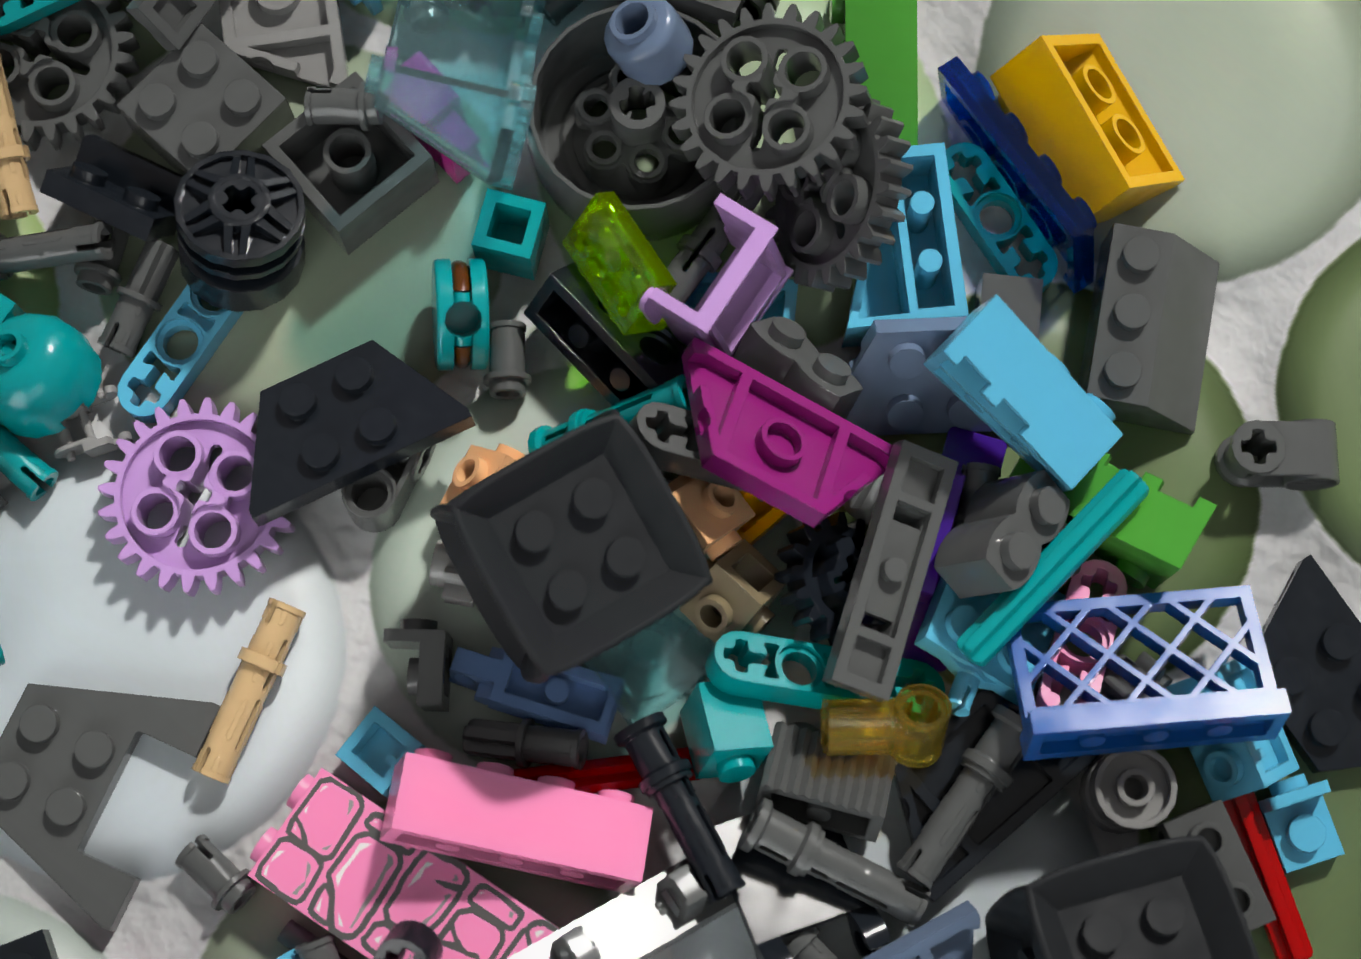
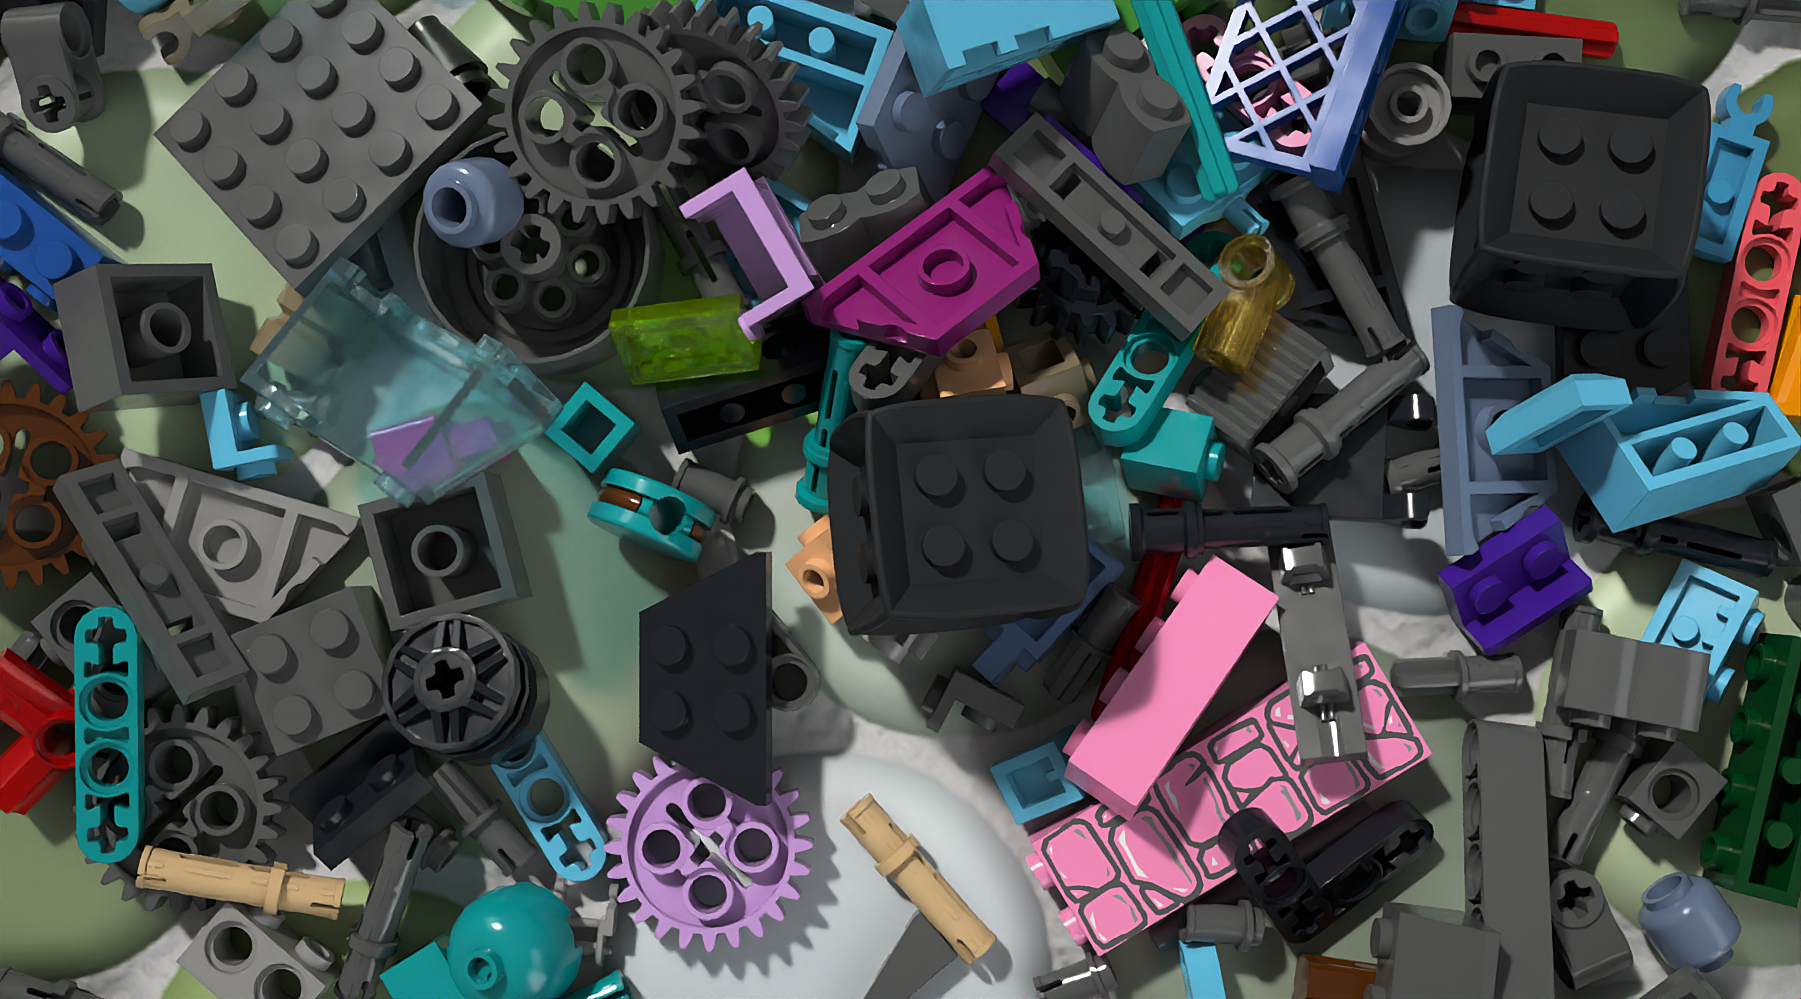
camera: 65 degrees left, 10 degrees up
(341, 106) = (392, 536): dark grey pin -> none

